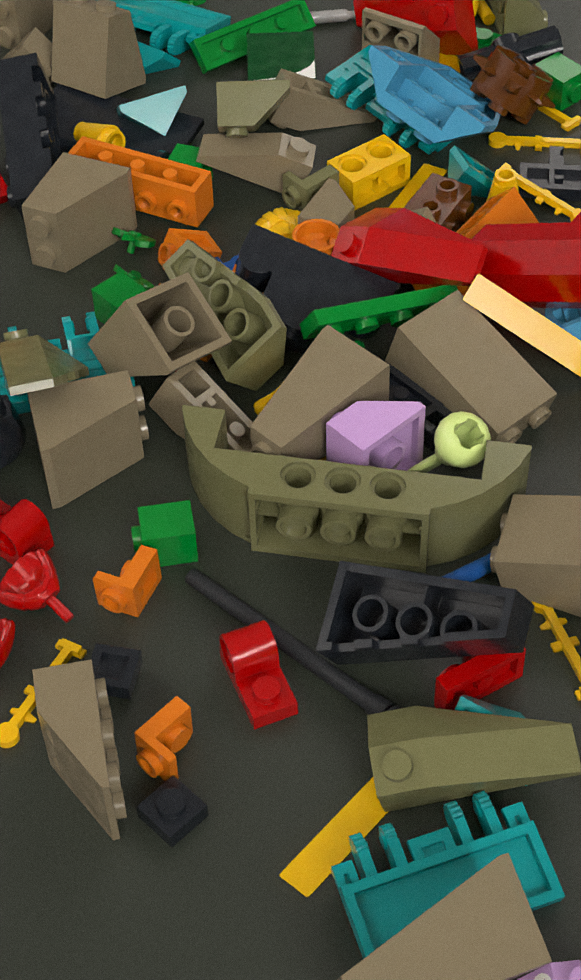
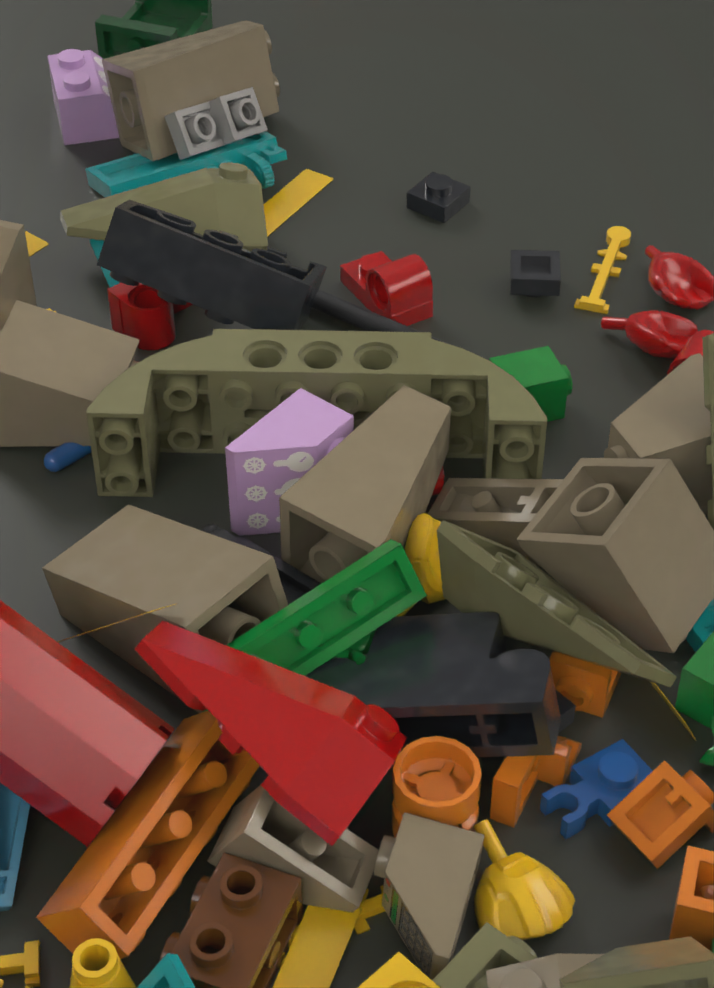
camera: 170 degrees right, 5 degrees down
(81, 739) = (535, 185): dark tan slope -> none
(133, 587) = (559, 328): orange bracket -> none
(162, 737) = (461, 223): orange bracket -> none
(392, 894) = (216, 123): none -> light grey slope
(458, 442) = (181, 454): yellowish green piece -> none

